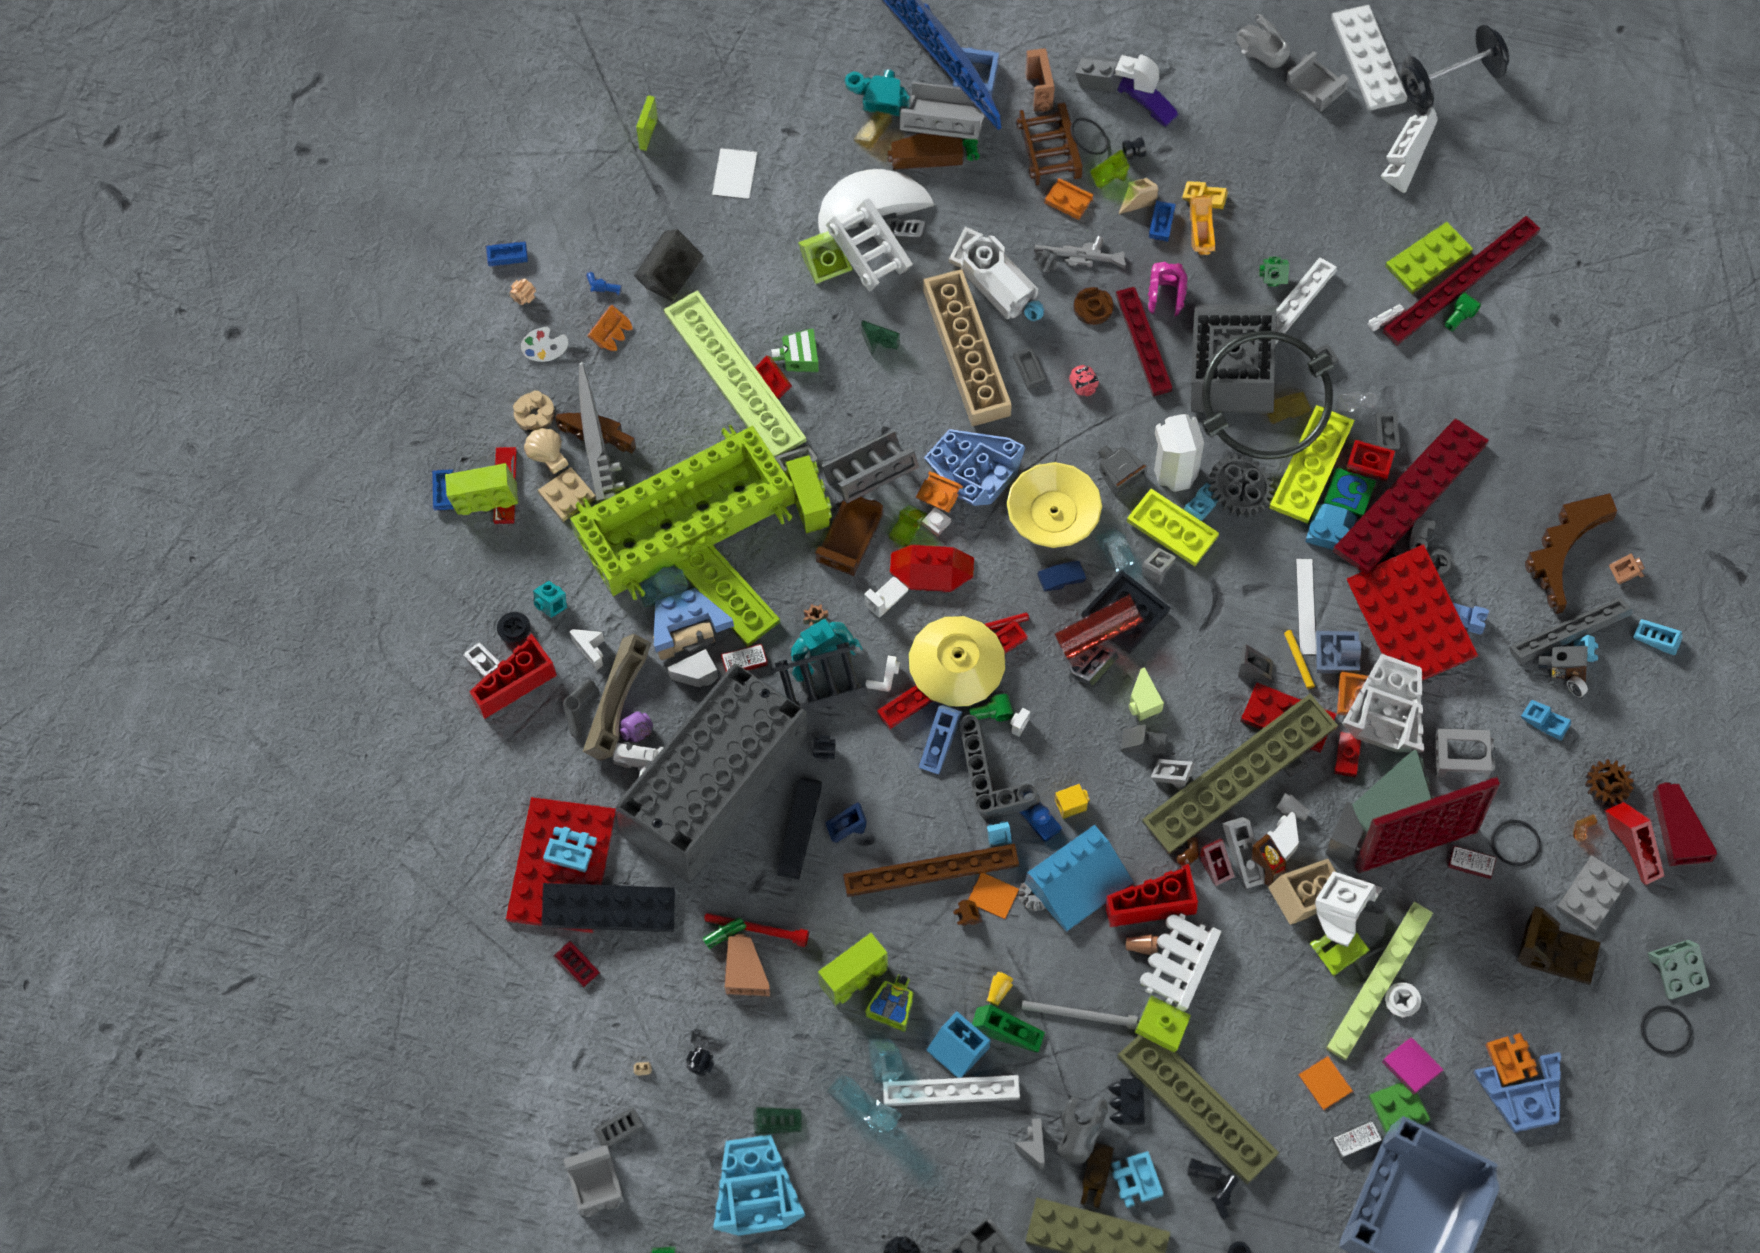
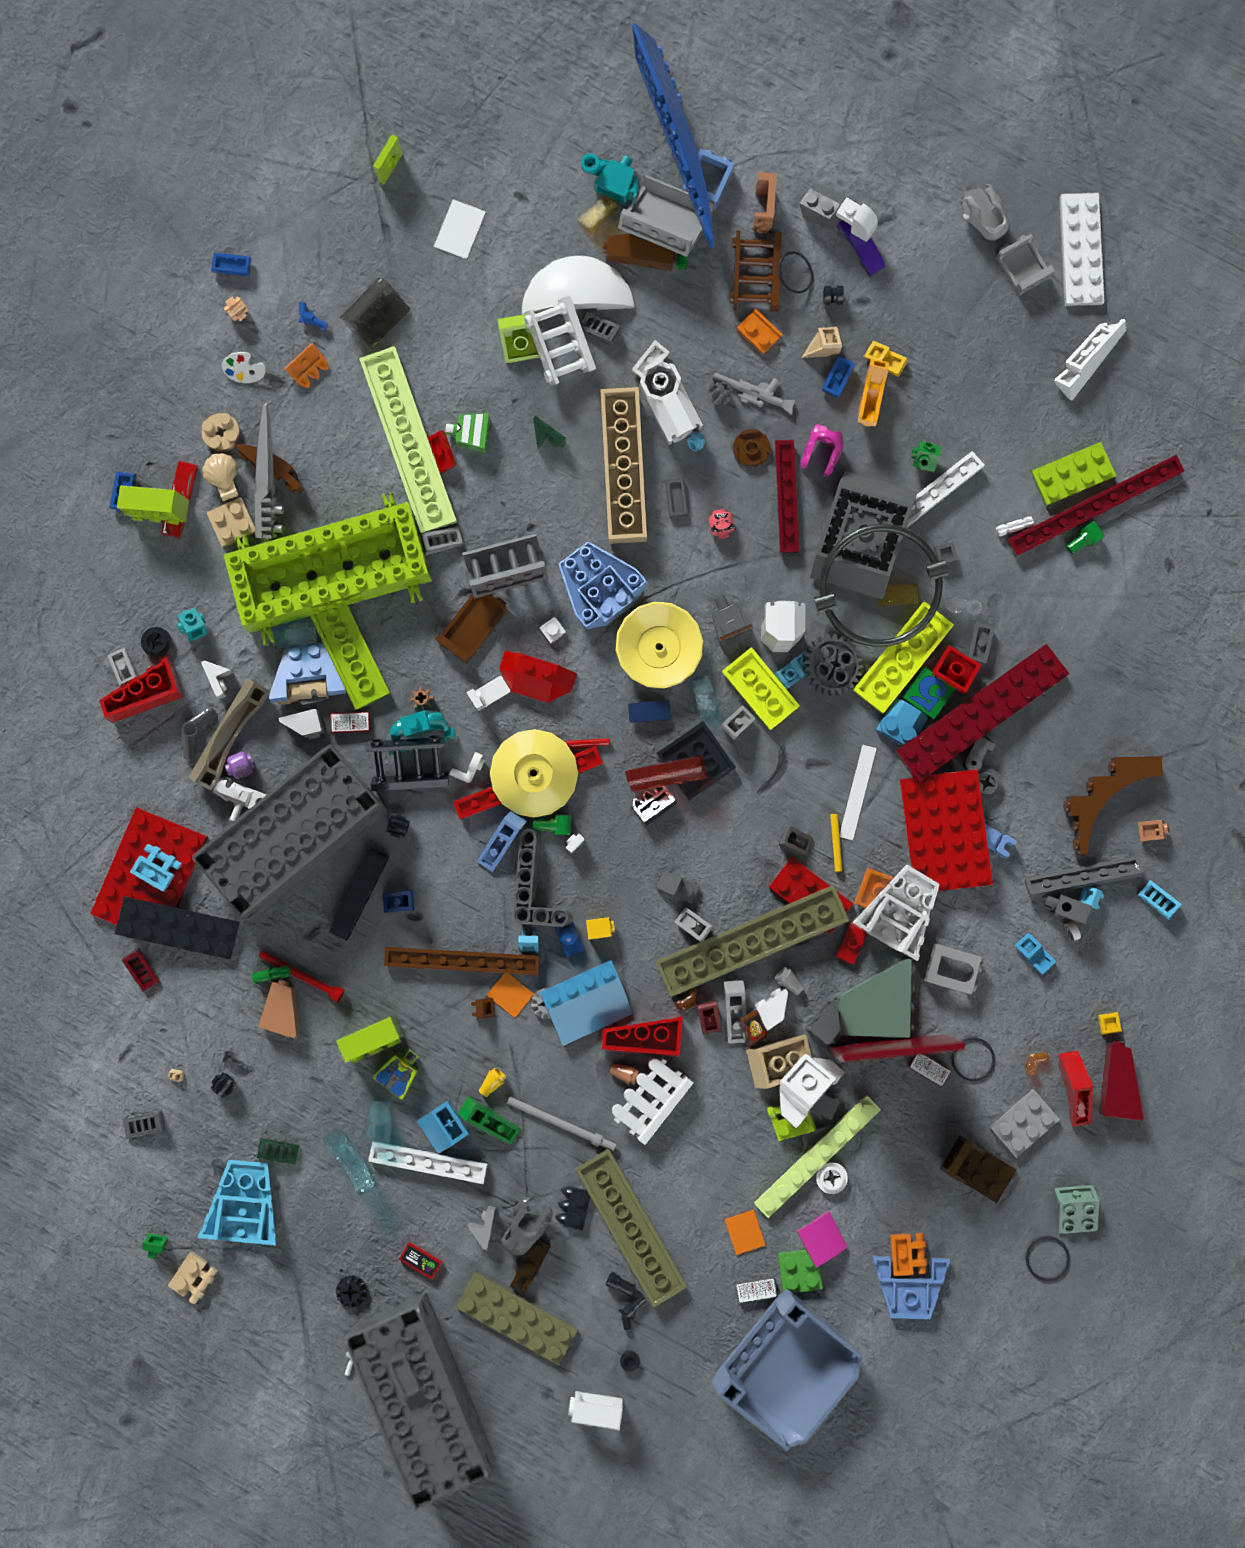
camera: 15 degrees right, 20 degrees up
(594, 1181) = (112, 1166): light grey panel -> none
(809, 494) = (443, 579): lime brick -> none
(907, 526) = (526, 627): clear neon green slope -> none
(939, 492) = (560, 605): orange plate -> none
(971, 1200) = (420, 1260): none -> tile
(1110, 169) = (804, 313): clear neon green slope -> none
(1144, 1178) = (568, 1277): medium azure plate -> none
(1145, 698) = (689, 847): yellowish green slope -> none
(1163, 1023) = (621, 1150): lime plate -> none
(1337, 652) = (871, 845): sand blue plate -> none
(1491, 51) = (1199, 281): black axle -> none
(1599, 782) = (1076, 1021): reddish brown gear -> none
(1648, 771) = (1109, 1023): none -> yellow tile

